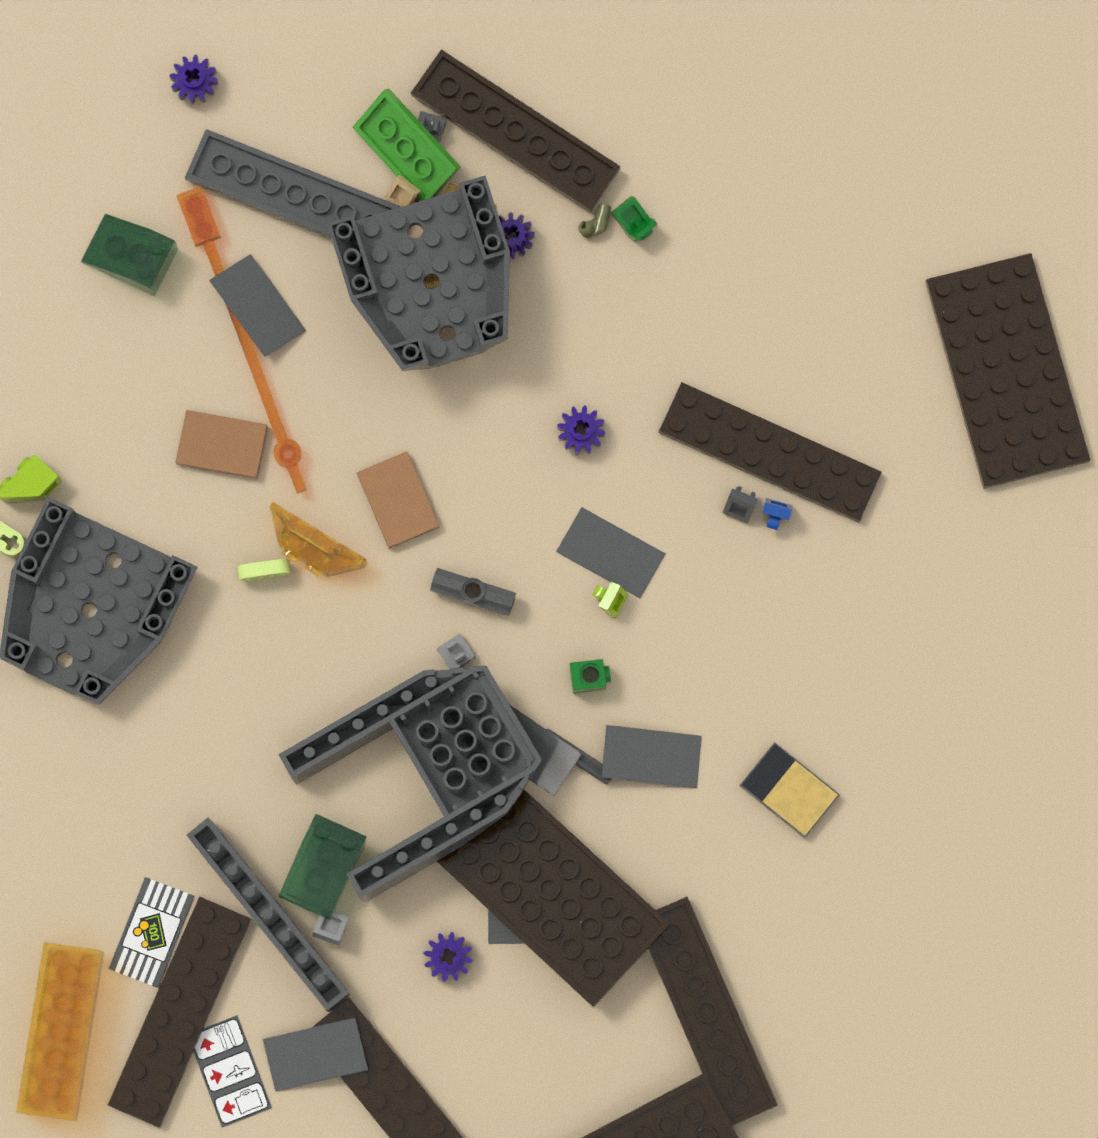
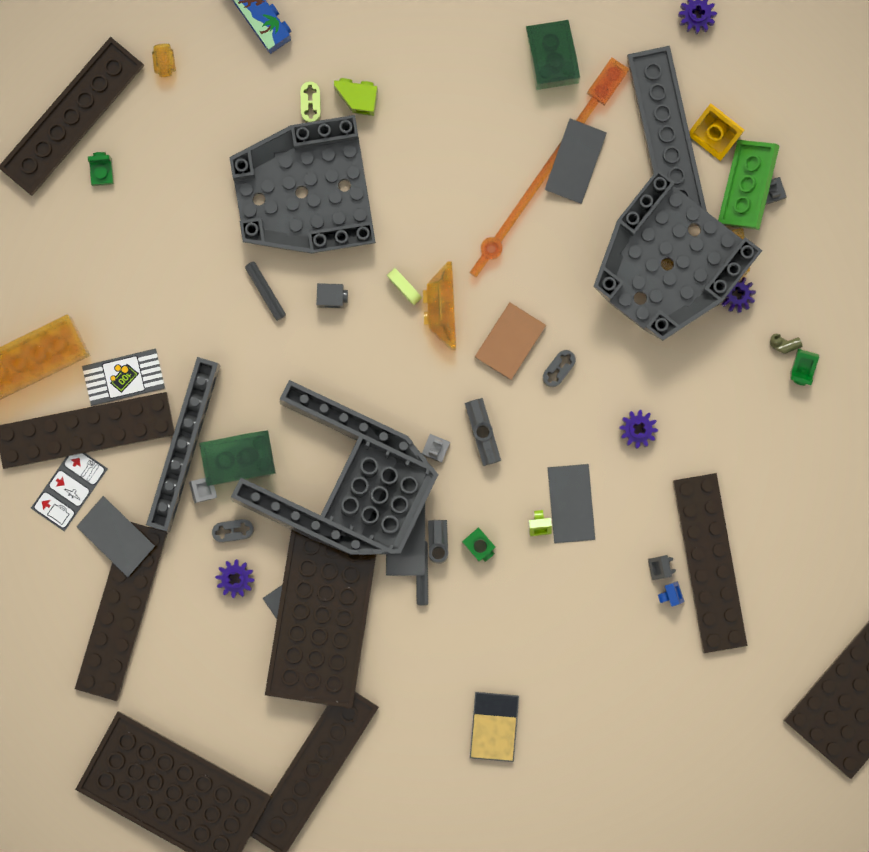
camera: 55 degrees right, 5 degrees up
(166, 718) = (265, 291): none -> dark grey axle
(220, 652) = (331, 295): none -> dark grey brick
(221, 444) = (468, 201): medium nougat tile -> none
(329, 143) = (715, 132): none -> yellow slope
(389, 922) = (234, 535): none -> dark grey beam
(402, 192) = (716, 203): tan tile -> none
(467, 466) = (555, 365): none -> dark grey beam
(515, 130) = (810, 248): dark brown plate -> none
(553, 714) = (438, 538): none -> dark grey piece
(651, 756) = (454, 621): dark grey sticker -> none

